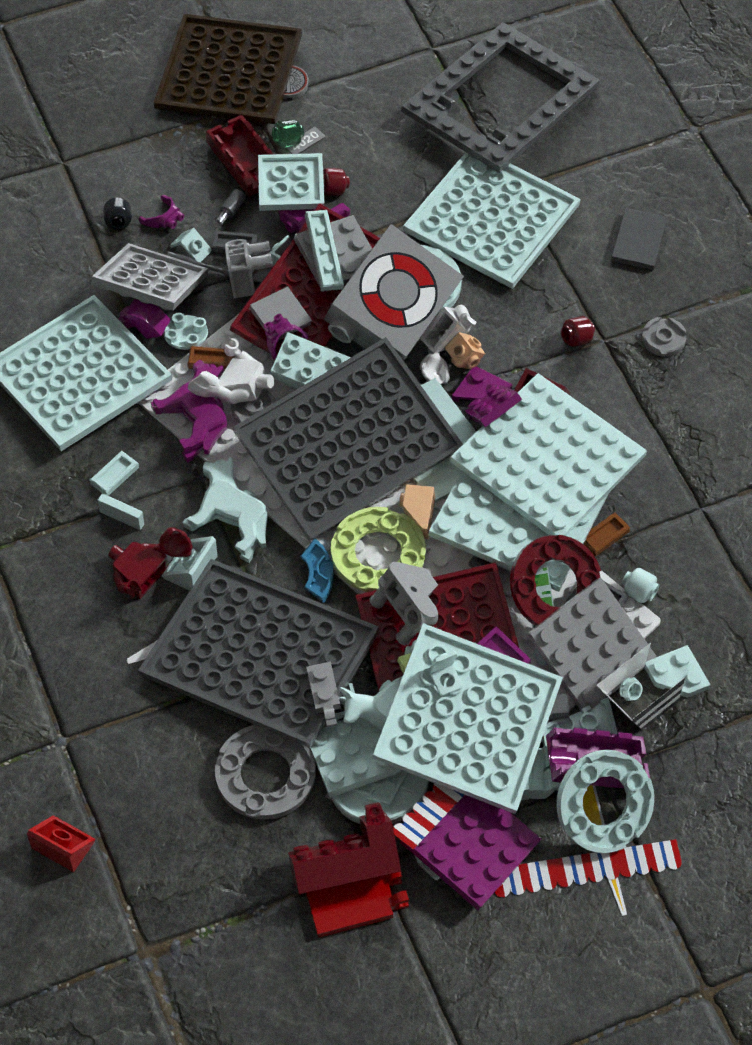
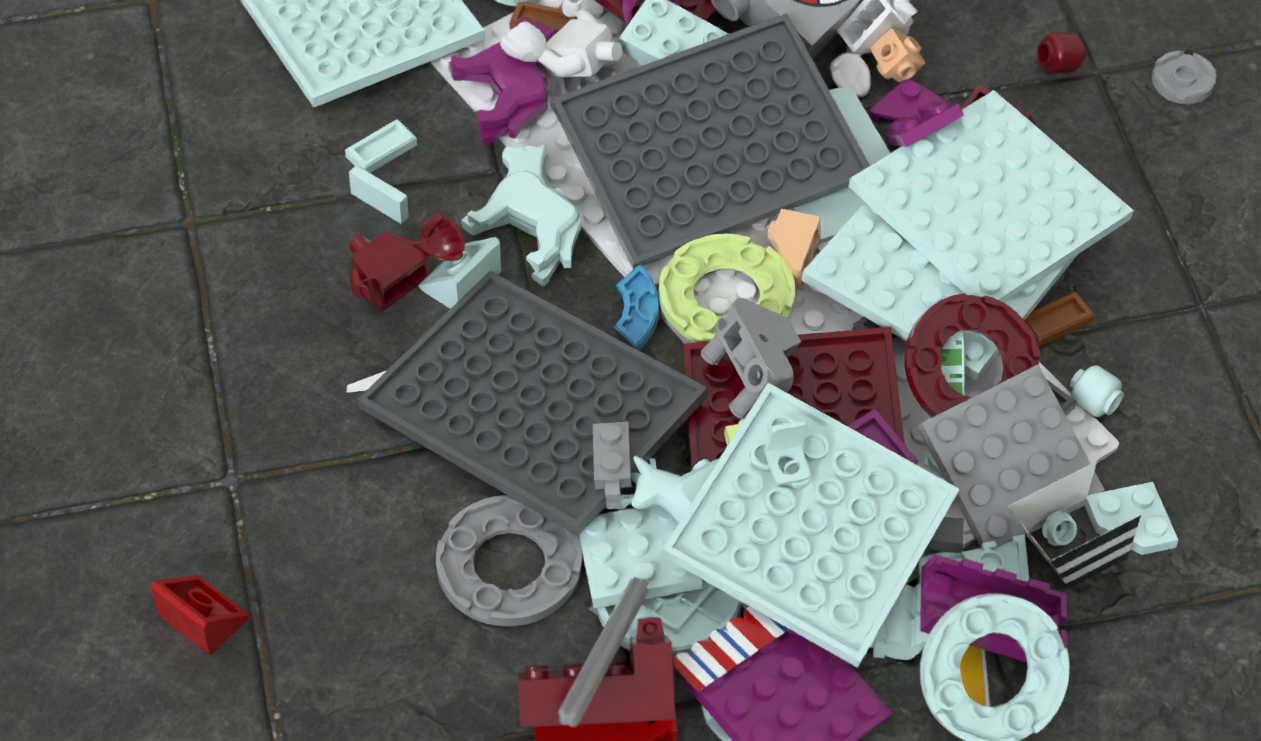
camera: 10 degrees right, 5 degrees down
(346, 834) = (603, 652): none -> light grey axle

